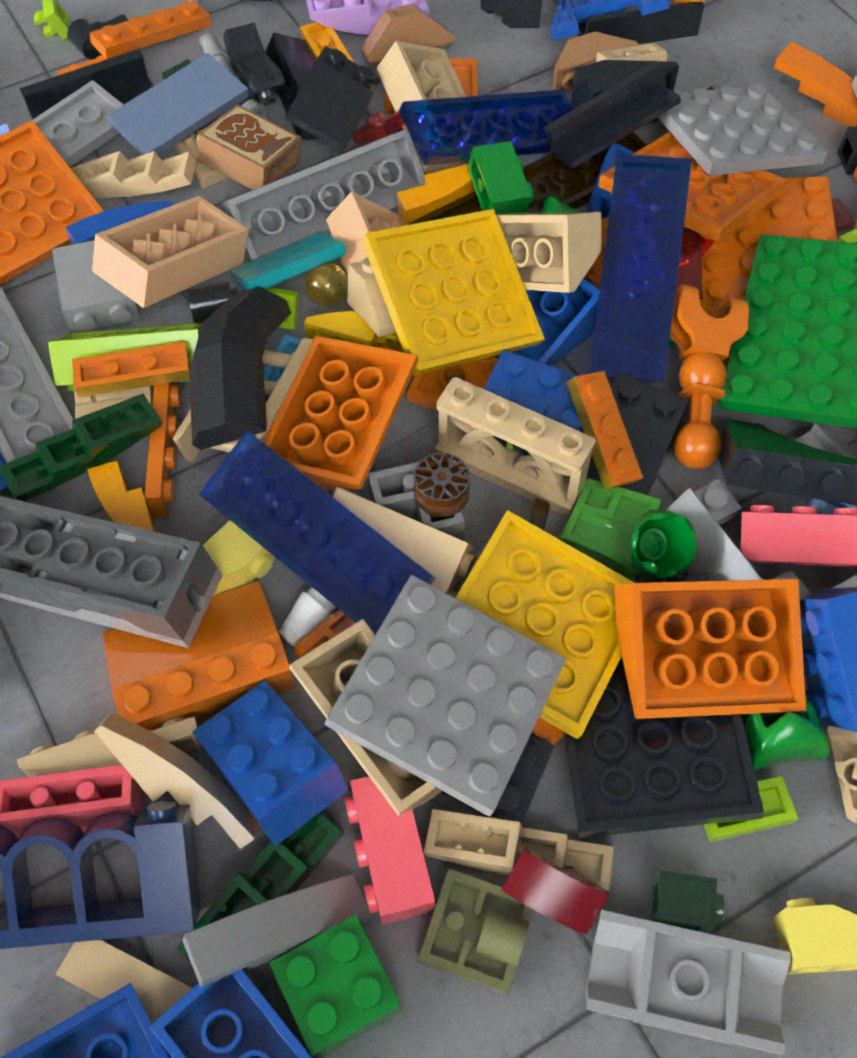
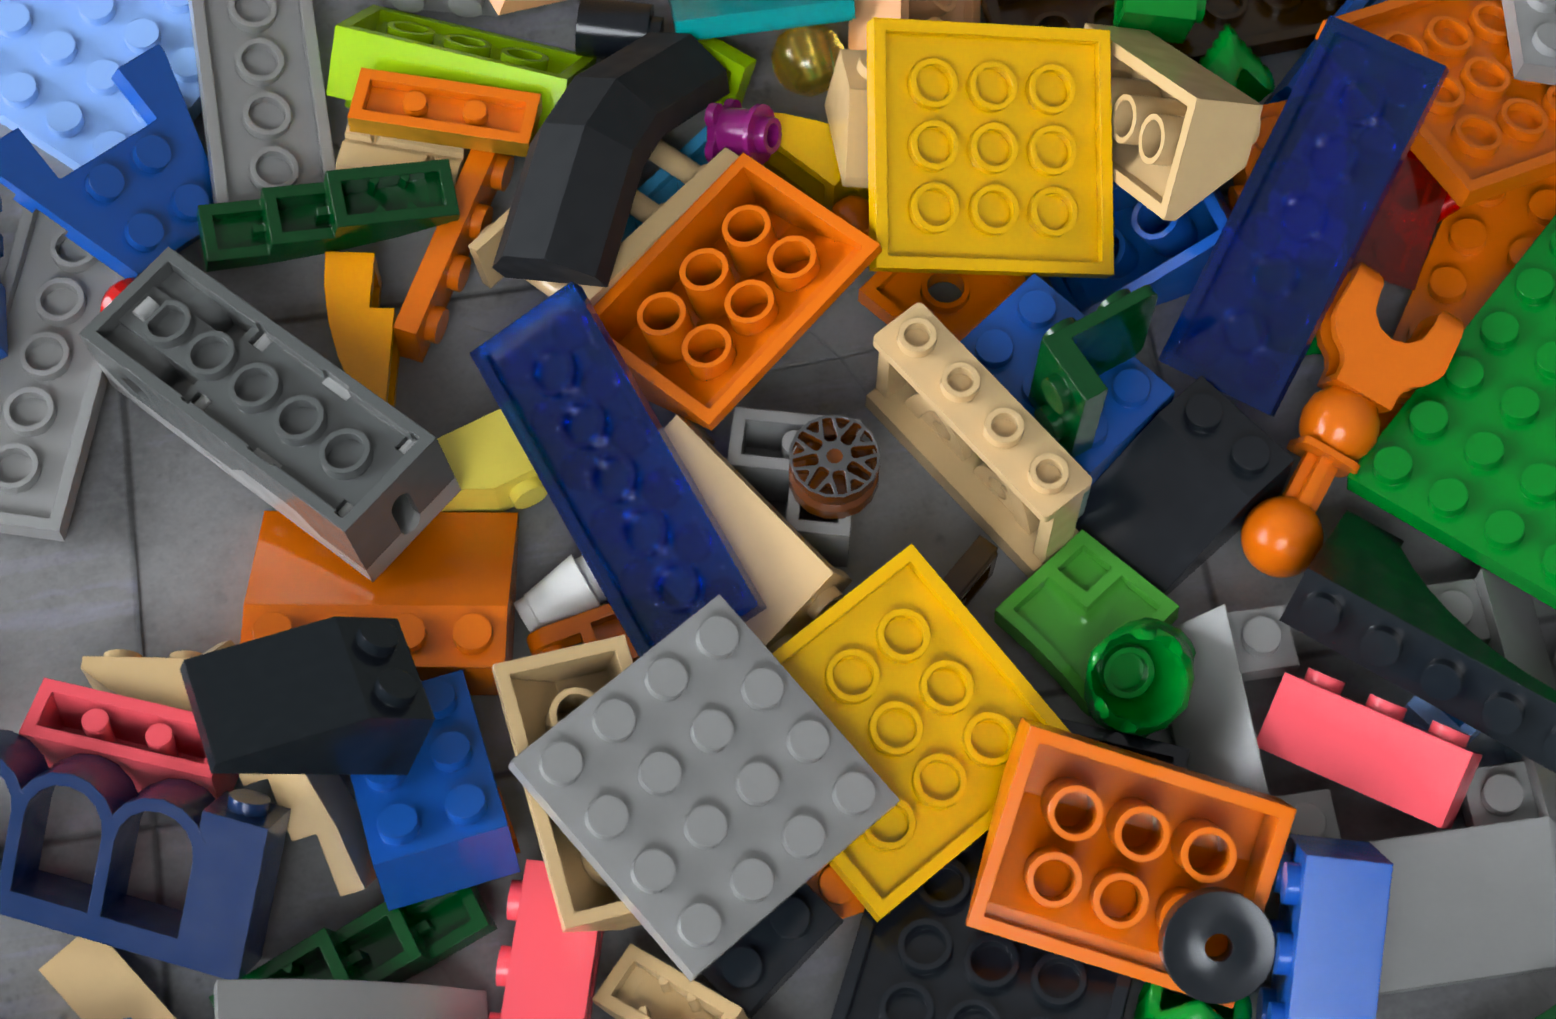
camera: 20 degrees right, 5 degrees up
(181, 729) = (311, 701): none -> black slope
(308, 325) = (742, 130): none -> magenta brick
(559, 388) = (1073, 355): none -> dark green bracket
(603, 421) = (1133, 464): orange plate -> none
(804, 679) = (1242, 964): none -> black piece

